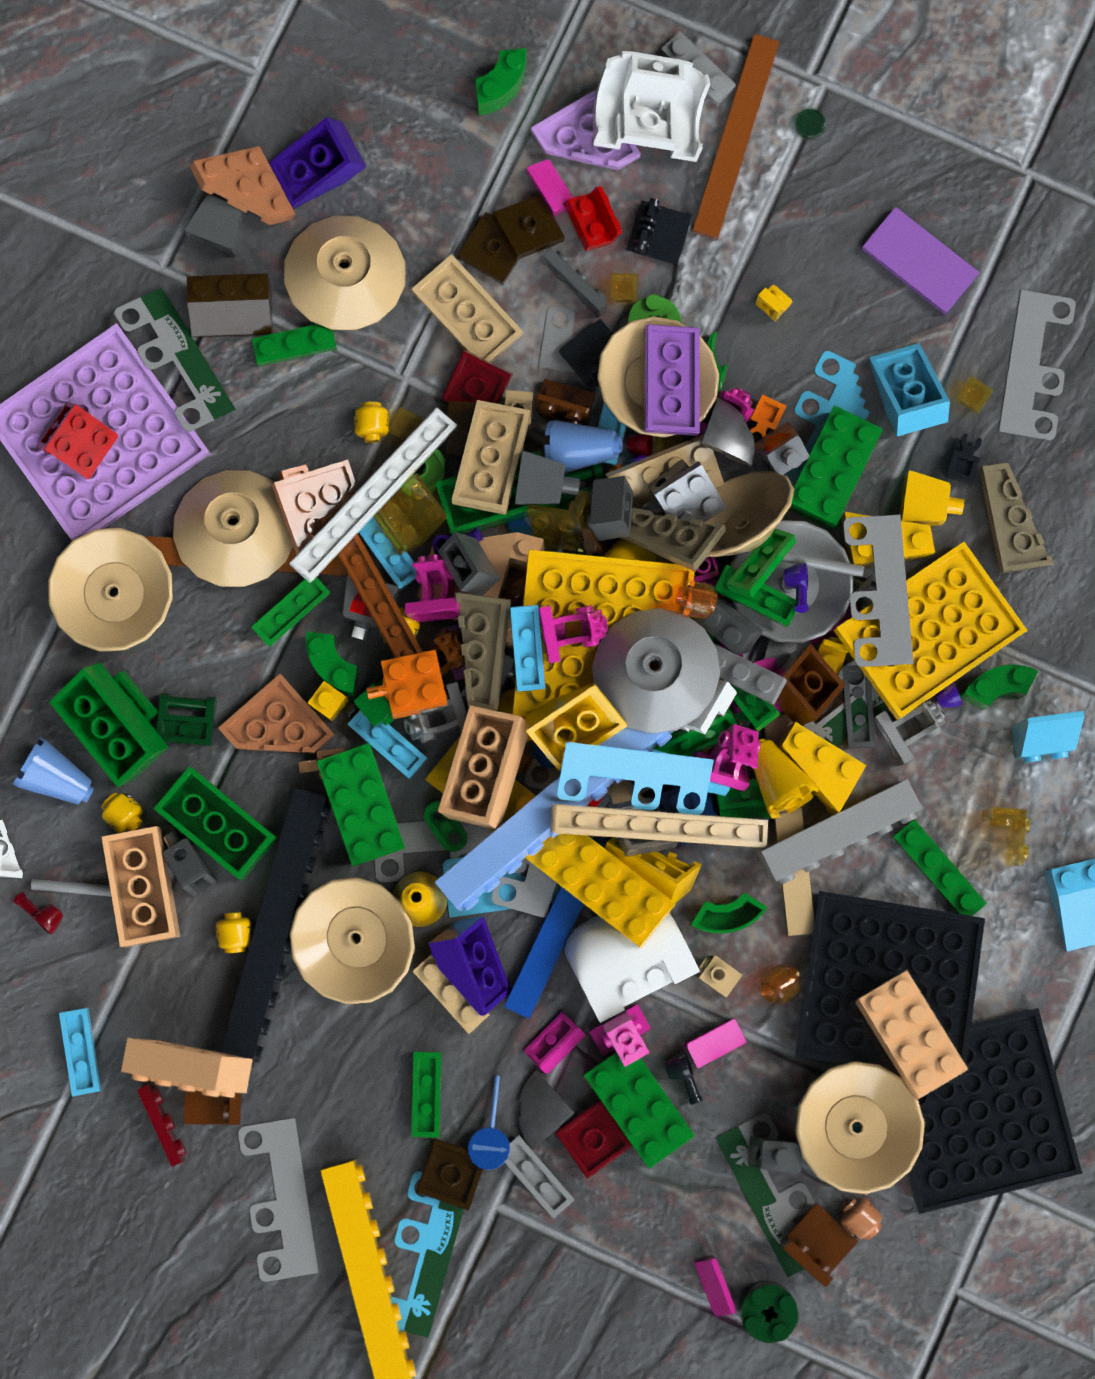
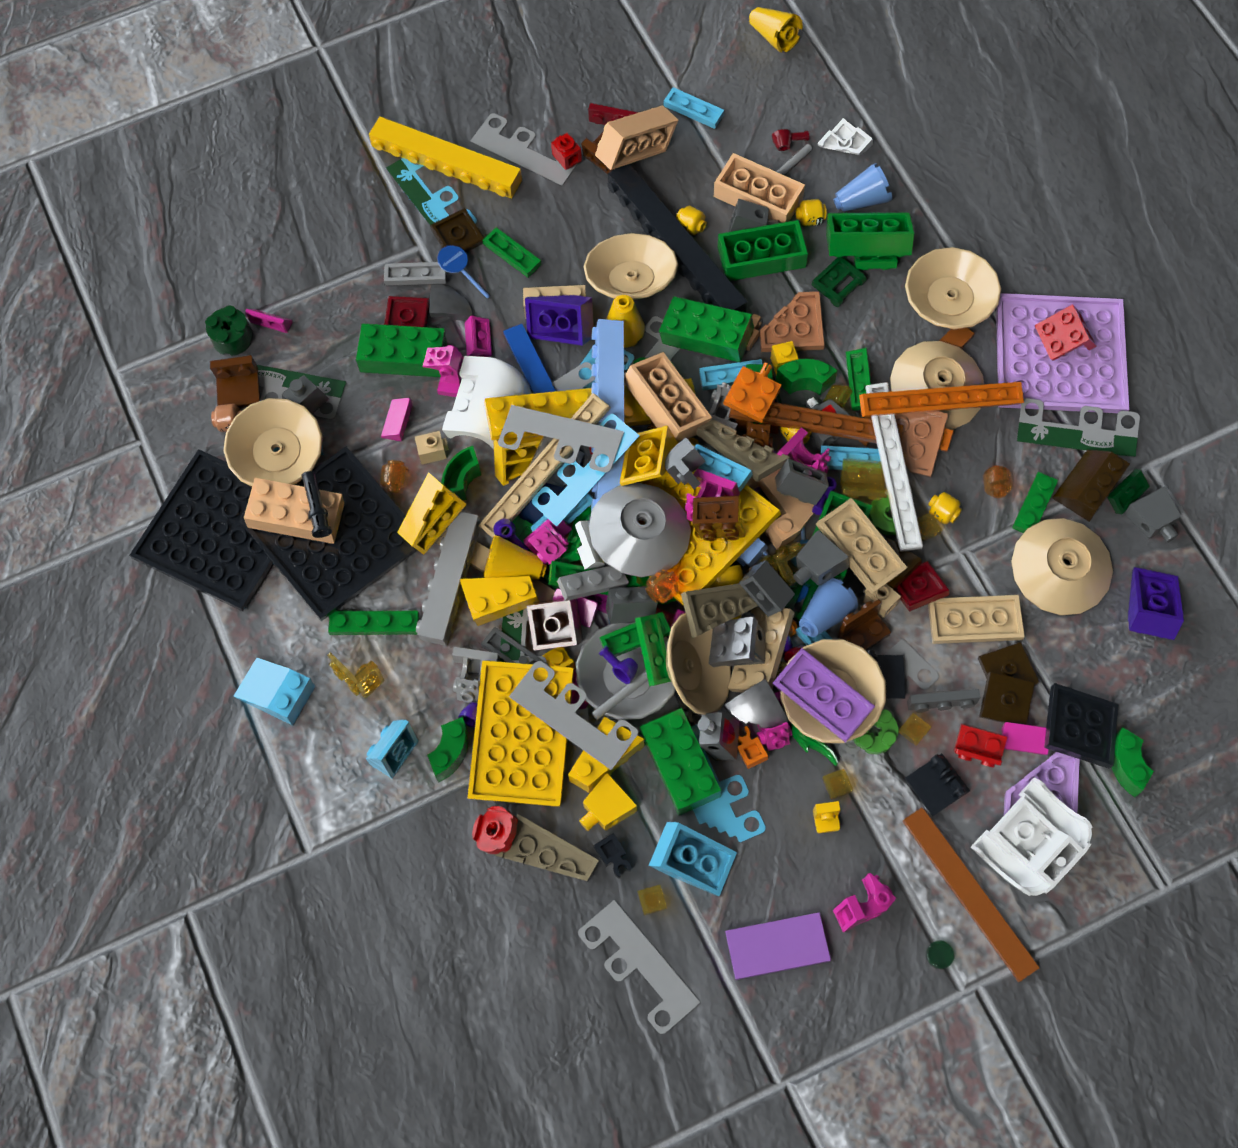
camera: 135 degrees right, 15 degrees down
(210, 263) = (1128, 491): none -> dark green plate
(246, 183) = (1172, 546): nougat plate -> none
(254, 1142) = (566, 151): none -> red brick
(265, 498) = (941, 399): none -> orange plate
(301, 392) = (997, 481): none -> clear orange head
(328, 616) = (838, 394): none -> clear yellow plate
(502, 143) = (1081, 725): none -> black plate
(558, 681) = (682, 462): none -> dark grey brick
(596, 592) = (717, 518): none -> reddish brown bracket
(613, 824) = (567, 430): none -> light grey piece
(680, 1069) = (398, 390): black bar -> none
(683, 49) = (1041, 908): light grey plate -> none
(733, 317) = (837, 784): none -> clear yellow plate
(747, 813) = (511, 534): none -> dark purple bar
(802, 894) = (430, 514): none -> yellow wedge
(840, 207) = (852, 913): none -> dark pink tile
(904, 995) = (317, 514): none -> black pin
(1022, 572) = (505, 834): none -> red plate

